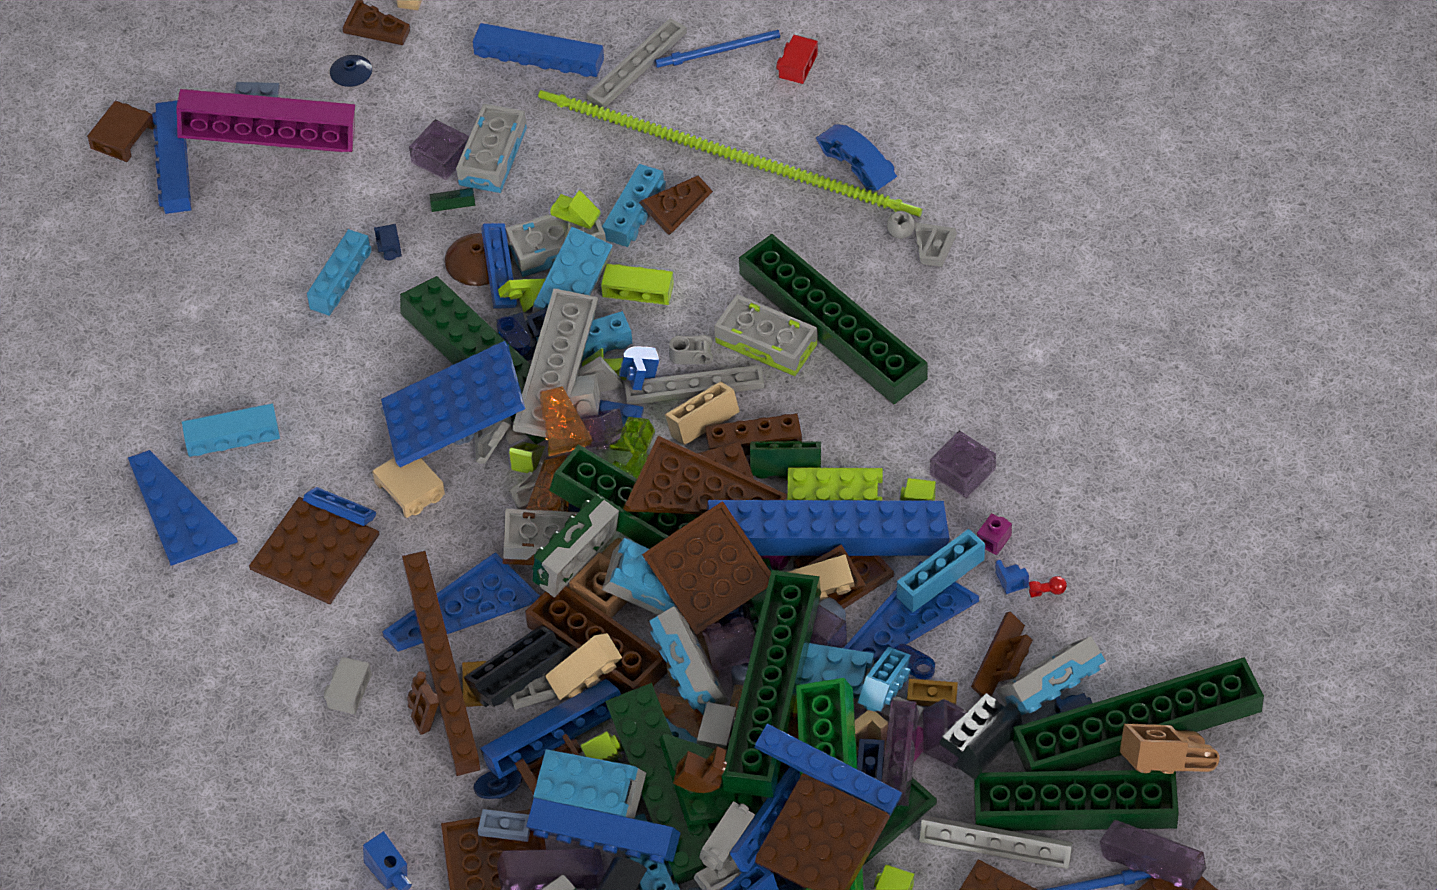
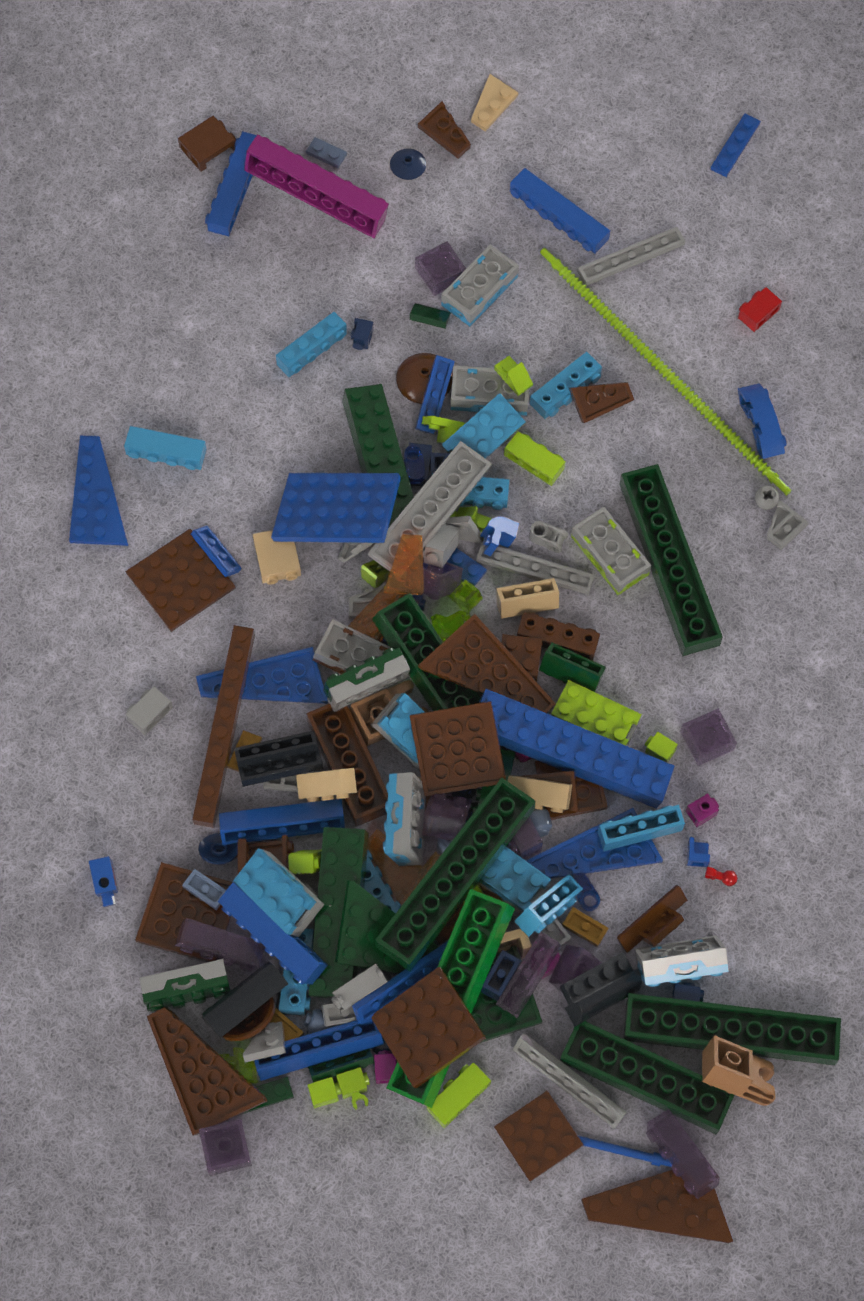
camera: 20 degrees right, 15 degrees up
(422, 702) = (194, 756): reddish brown plate -> none
(678, 58) = (665, 265): blue bar -> none
(699, 773) = (361, 929): reddish brown brick -> none
(716, 726) = (398, 887): light grey brick -> none
(827, 769) = (457, 976): blue plate -> none

